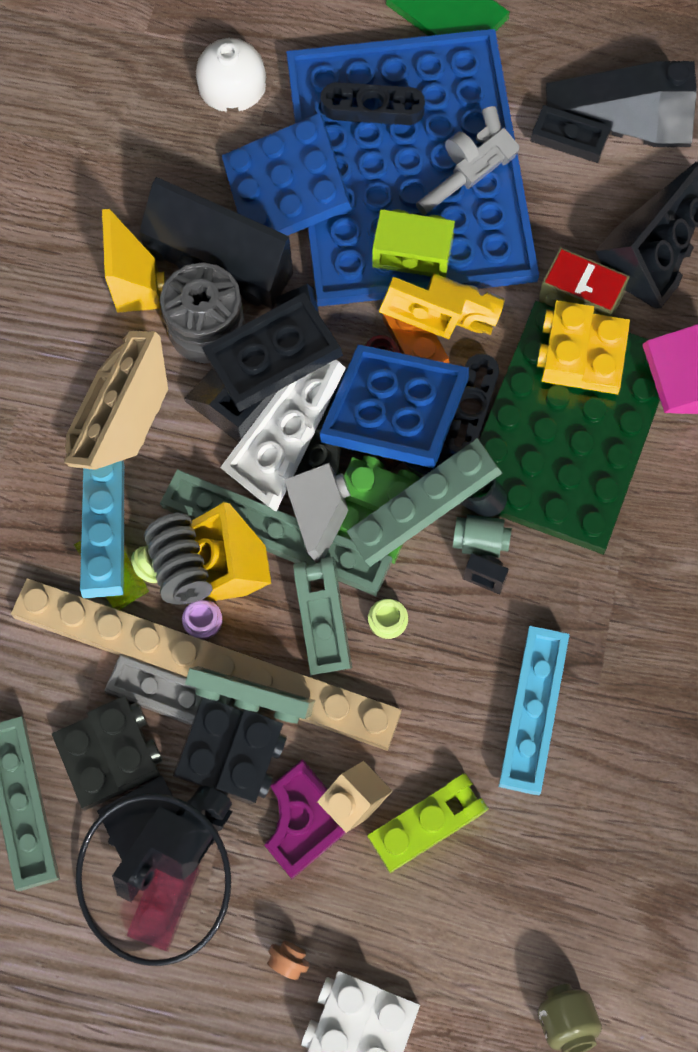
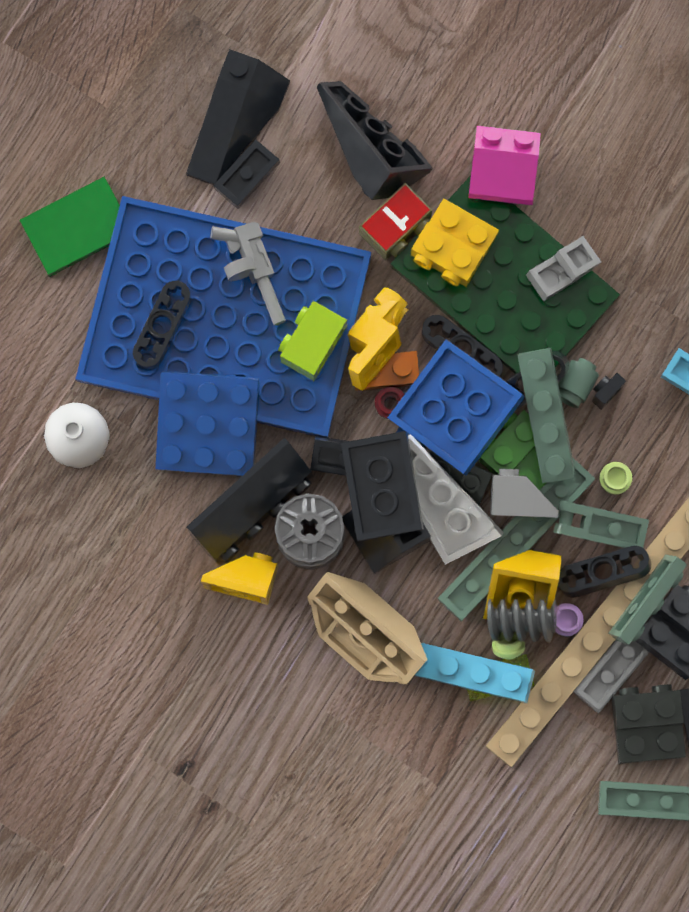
camera: 70 degrees left, 10 degrees up
(270, 654) = (624, 555): none -> black beam
(606, 474) = (563, 268): none -> light grey slope

